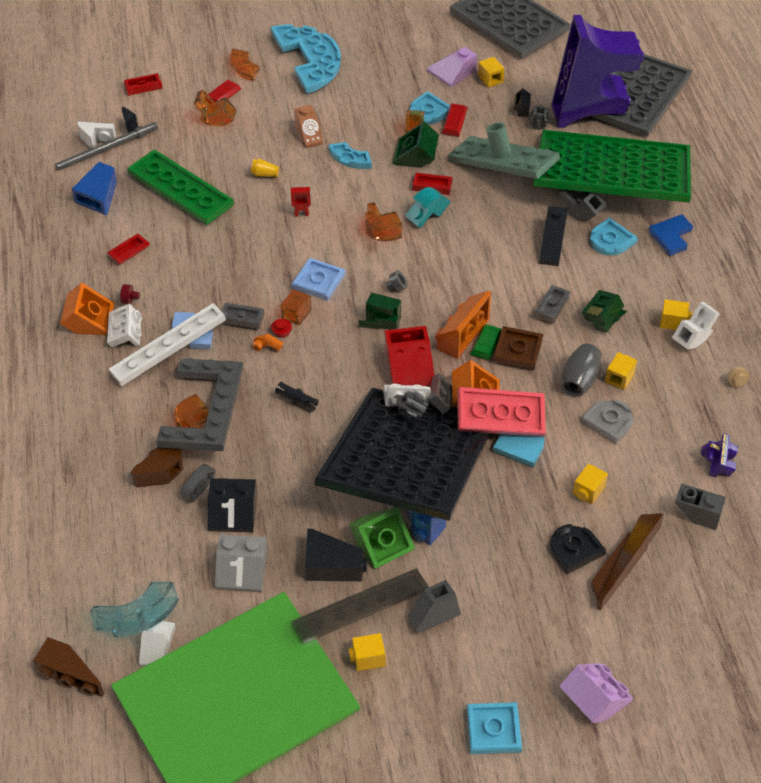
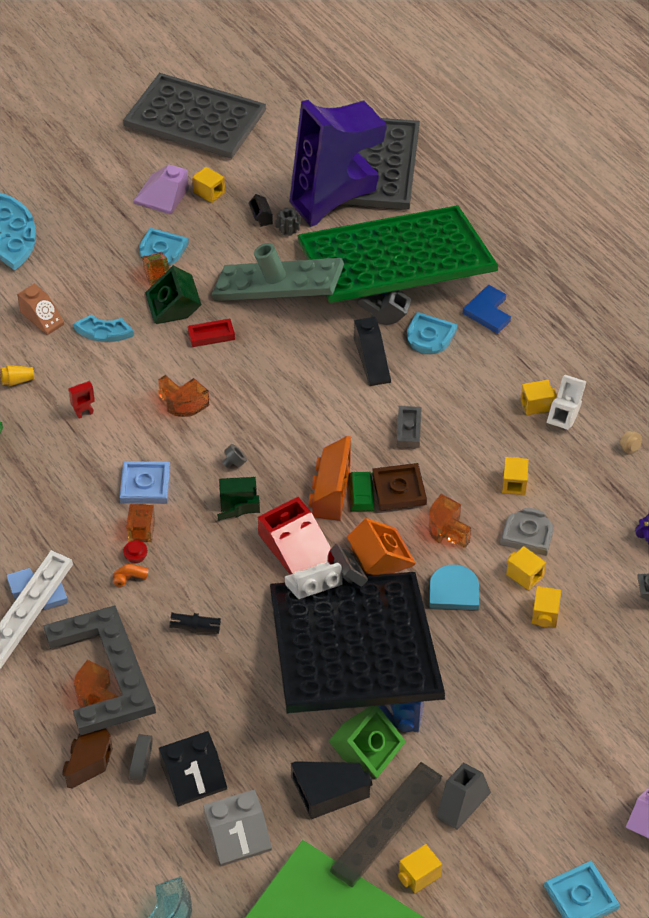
camera: 25 degrees left, 0 degrees up
(243, 315) = (86, 552): flat silver plate -> none
(412, 404) = (331, 587): dark grey gear -> none
(427, 202) = (222, 357): teal brick -> none
(454, 120) = (197, 252): red tile -> none
(501, 412) = (423, 563): coral tile -> none
(545, 381) = (445, 522): none -> clear orange brick
(575, 547) = (563, 678): black tile -> none
(581, 370) = (477, 489): dark grey piece -> none
(589, 447) = (525, 568): none -> yellow brick
(604, 310) = (465, 416): dark green piece -> none
(625, 557) = (617, 670): reddish brown wedge -> none

